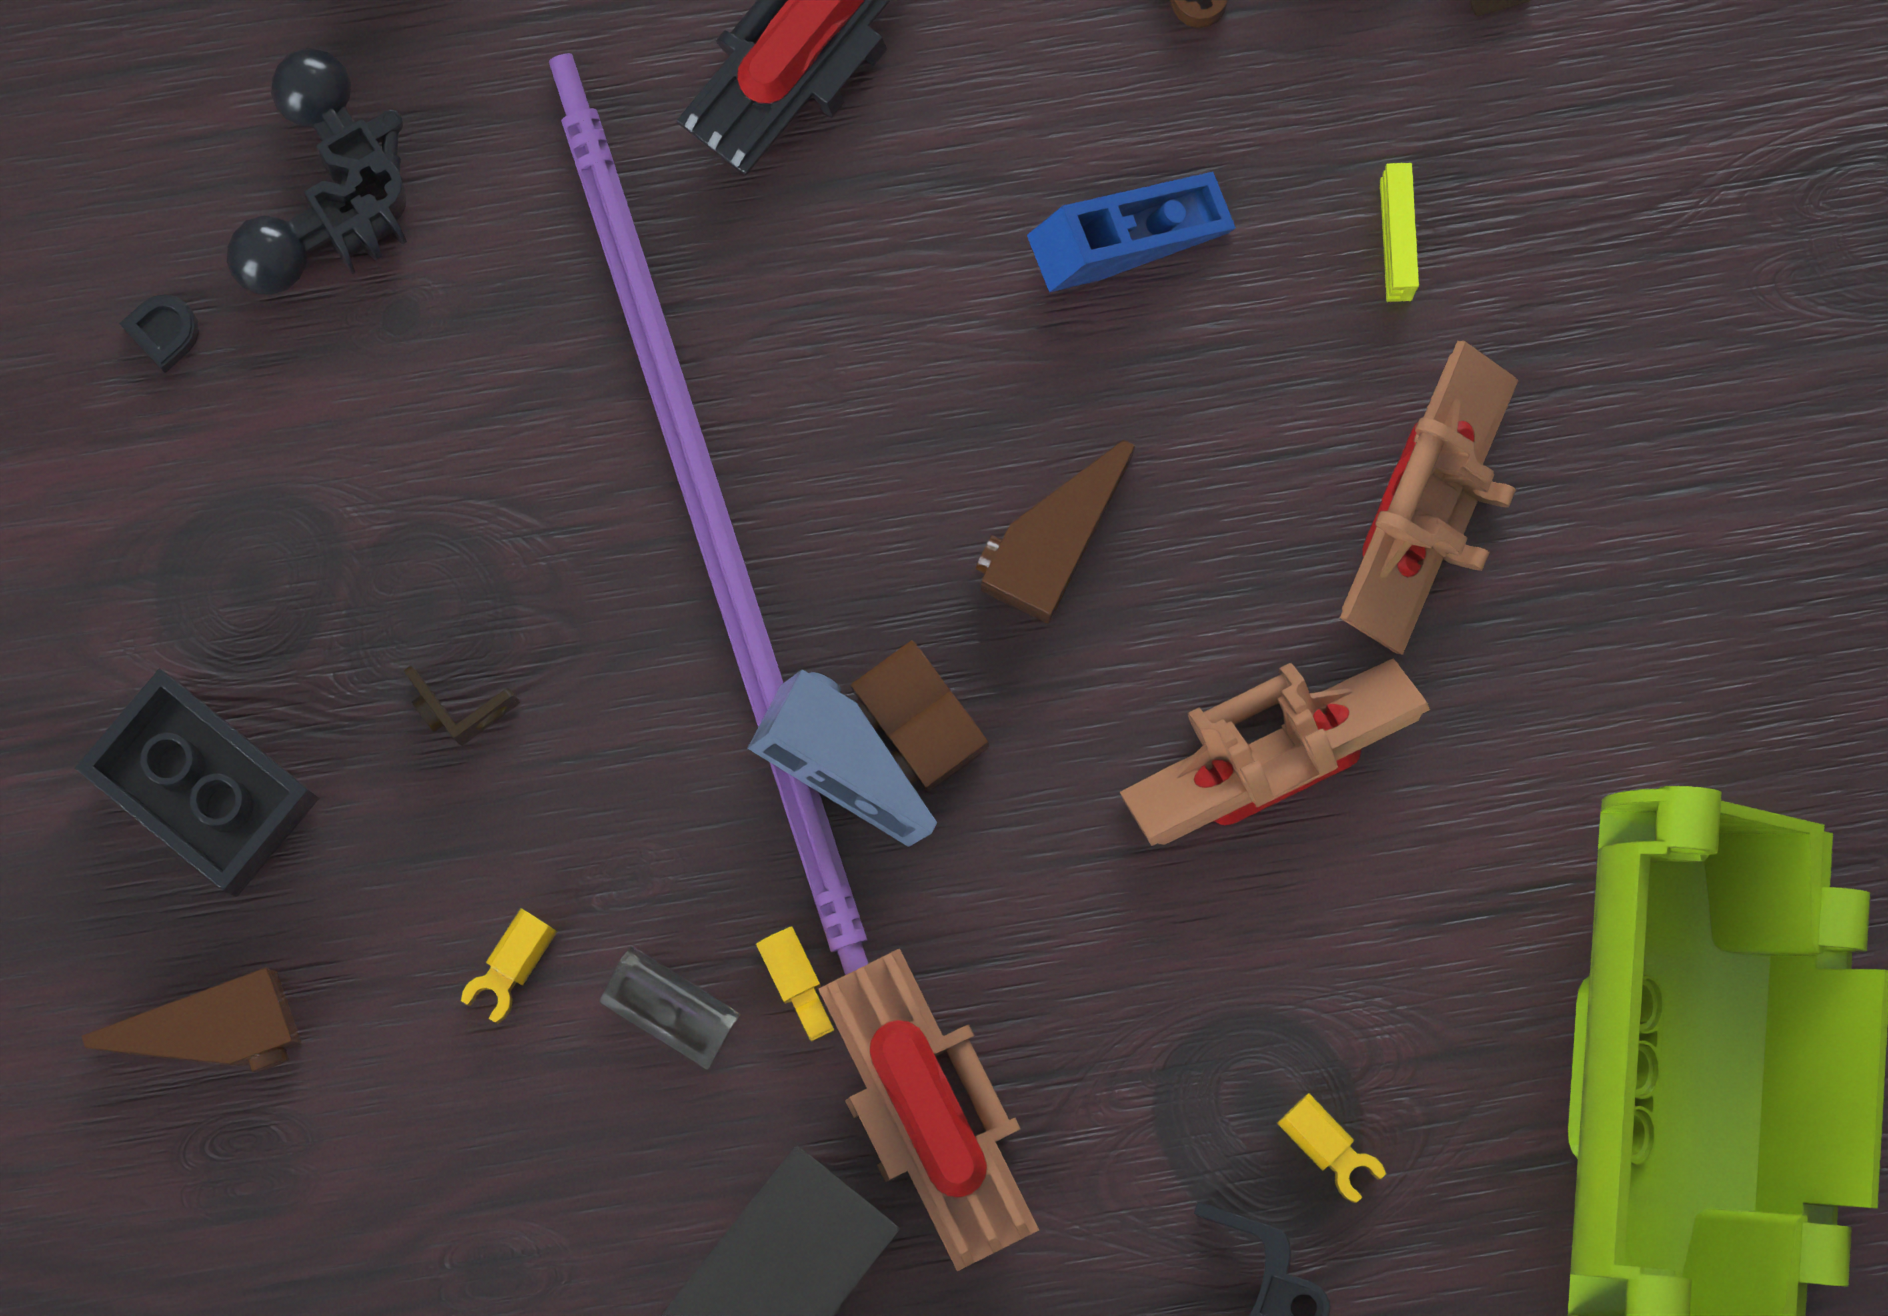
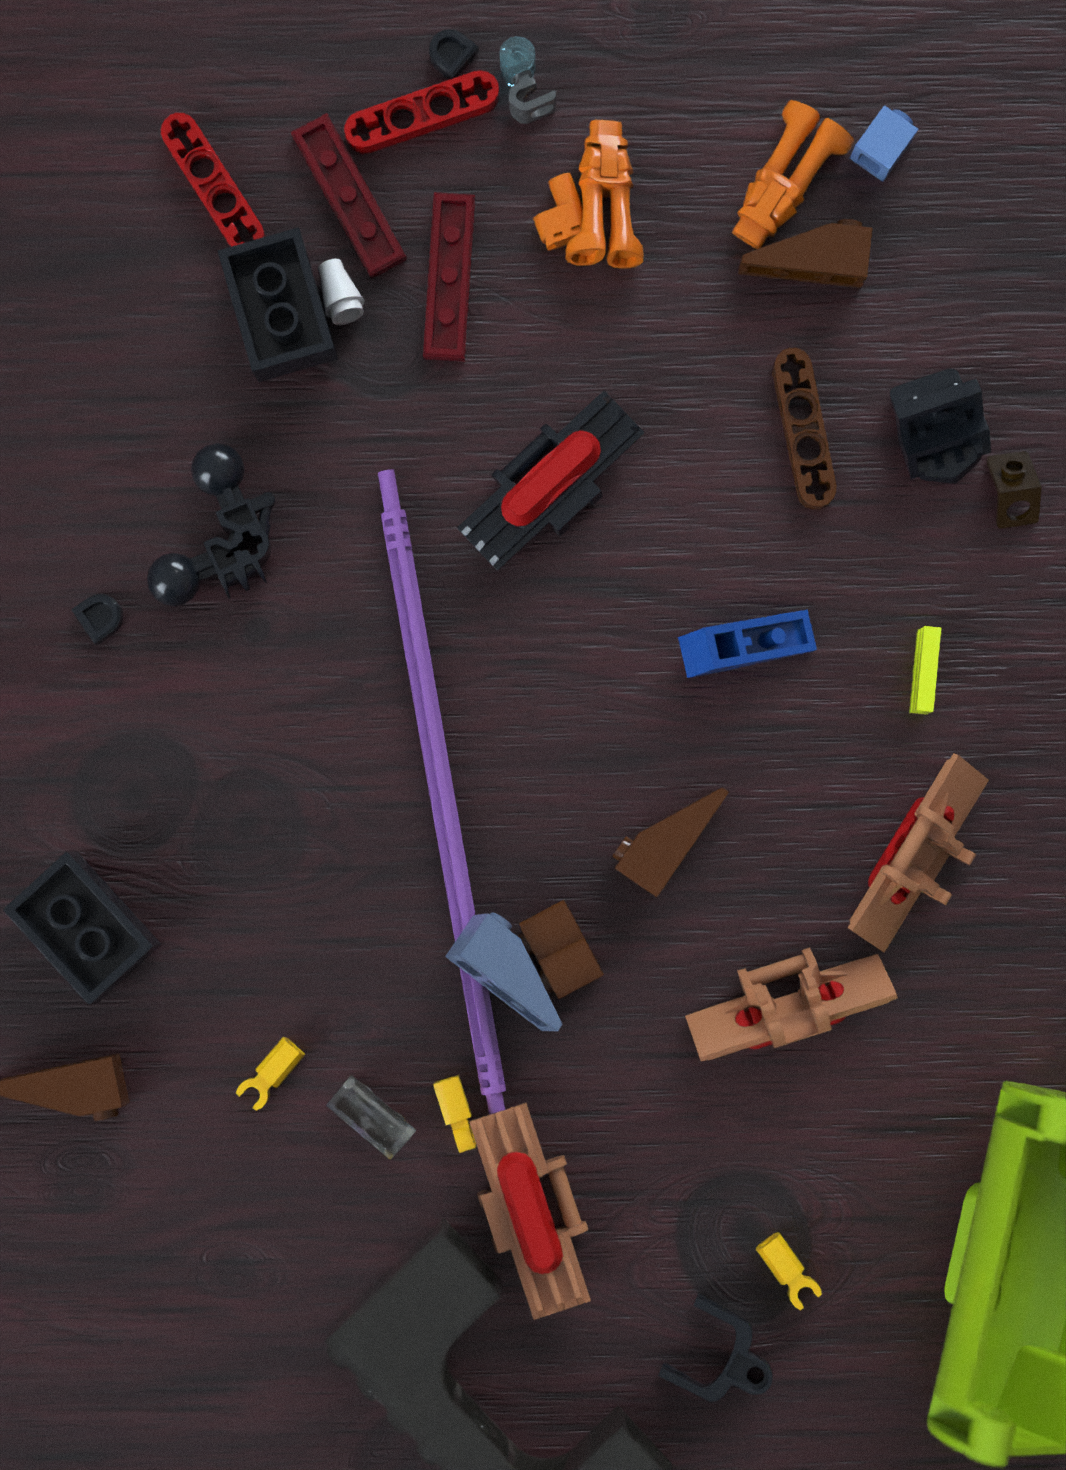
camera: 10 degrees right, 5 degrees up
(437, 716) = (244, 901): dark brown bracket -> none

